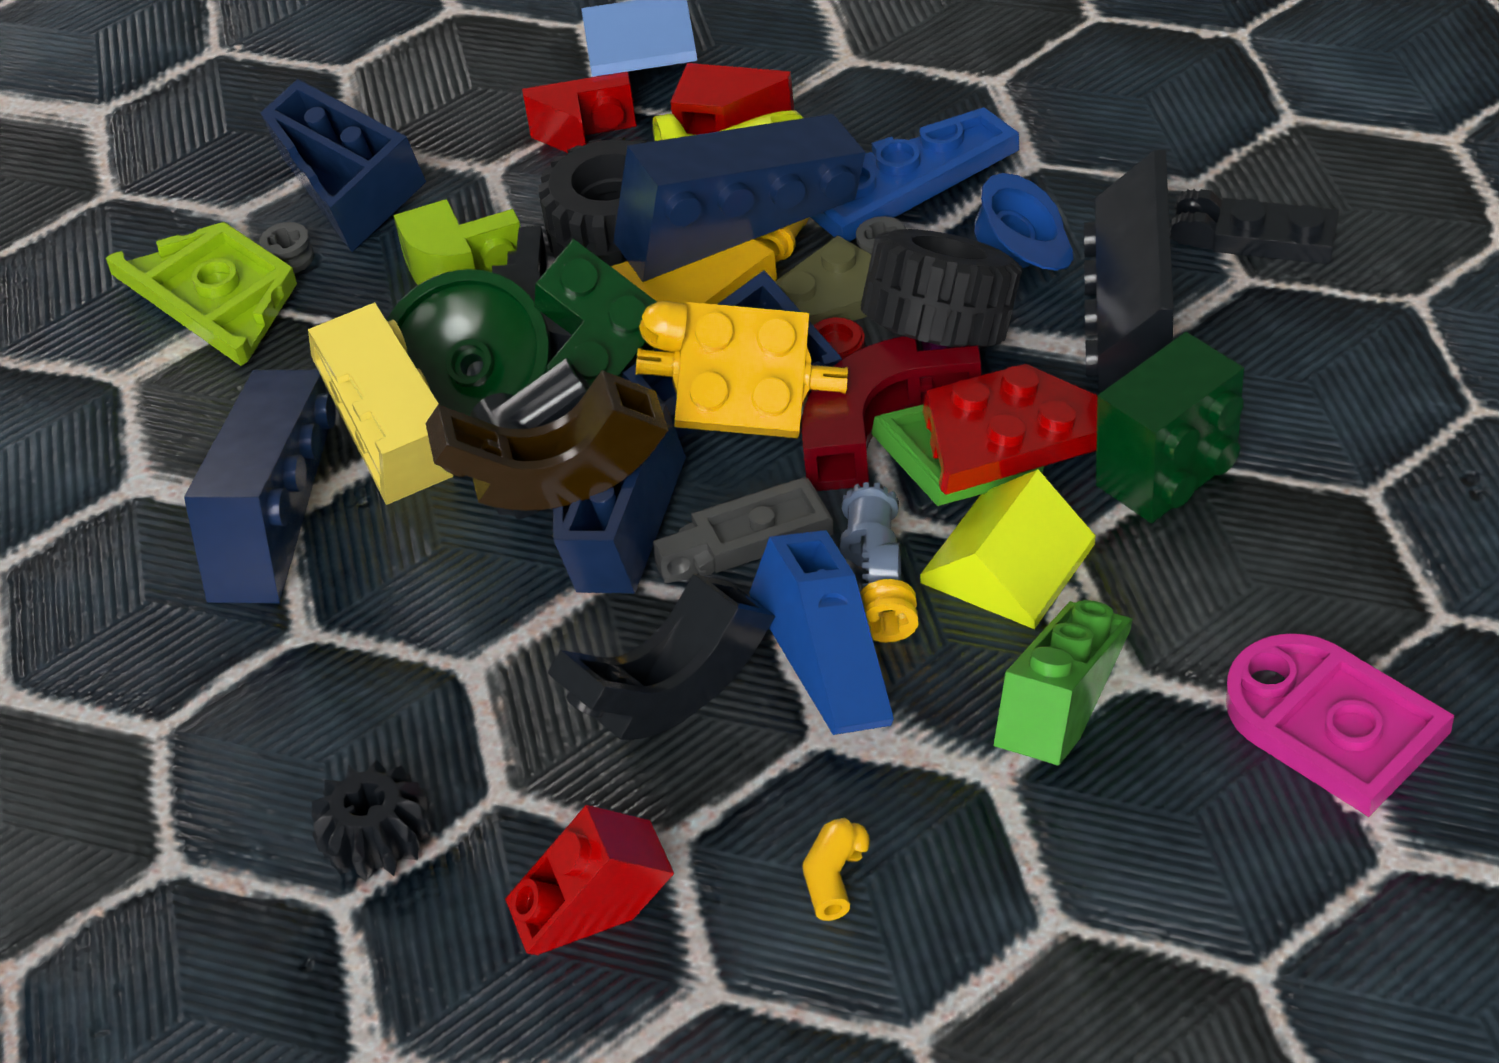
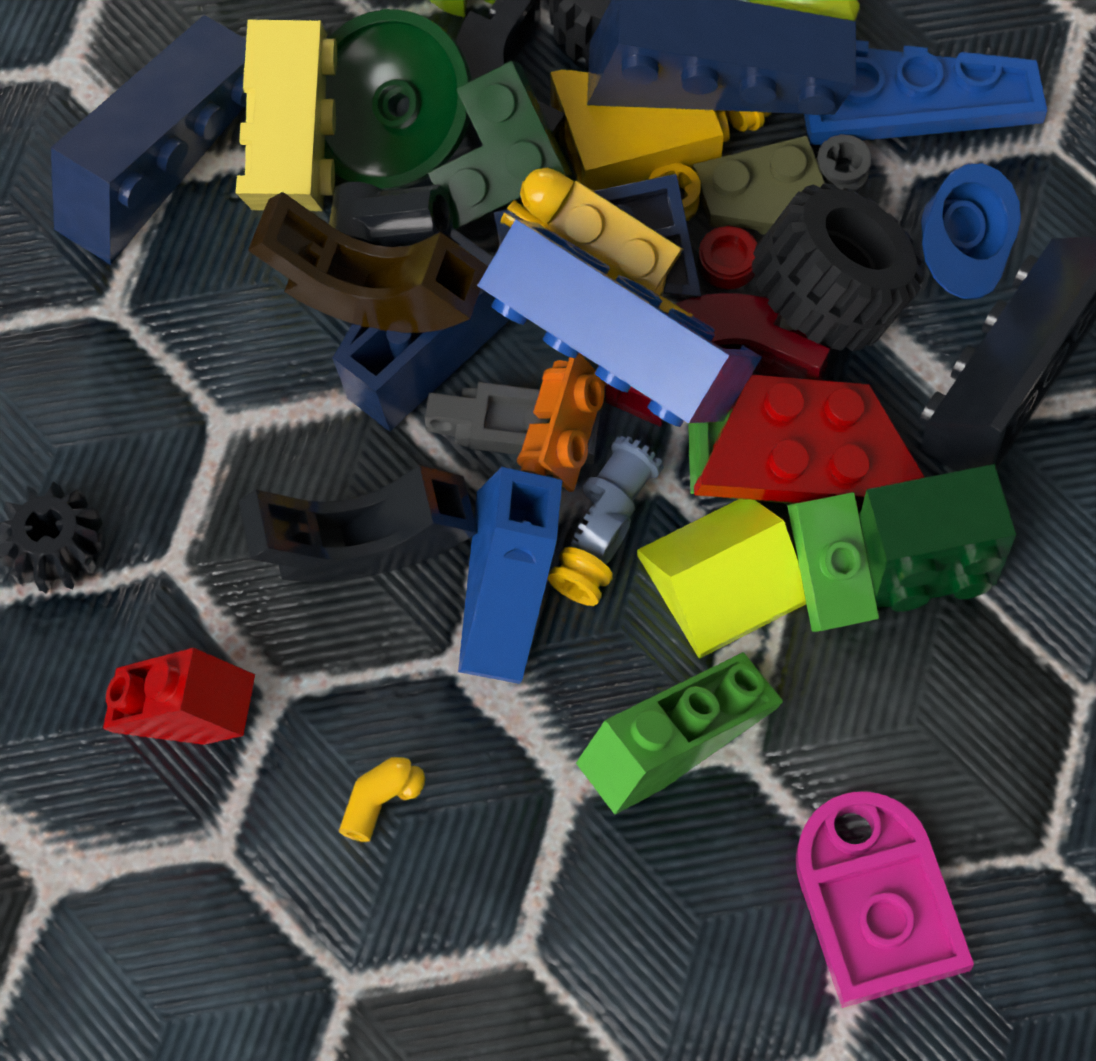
camera: 25 degrees right, 20 degrees up
(784, 481) = (571, 399): none -> orange hinge
(797, 379) = (616, 326): none -> wedge
(1098, 491) = (833, 562): none -> bright green plate

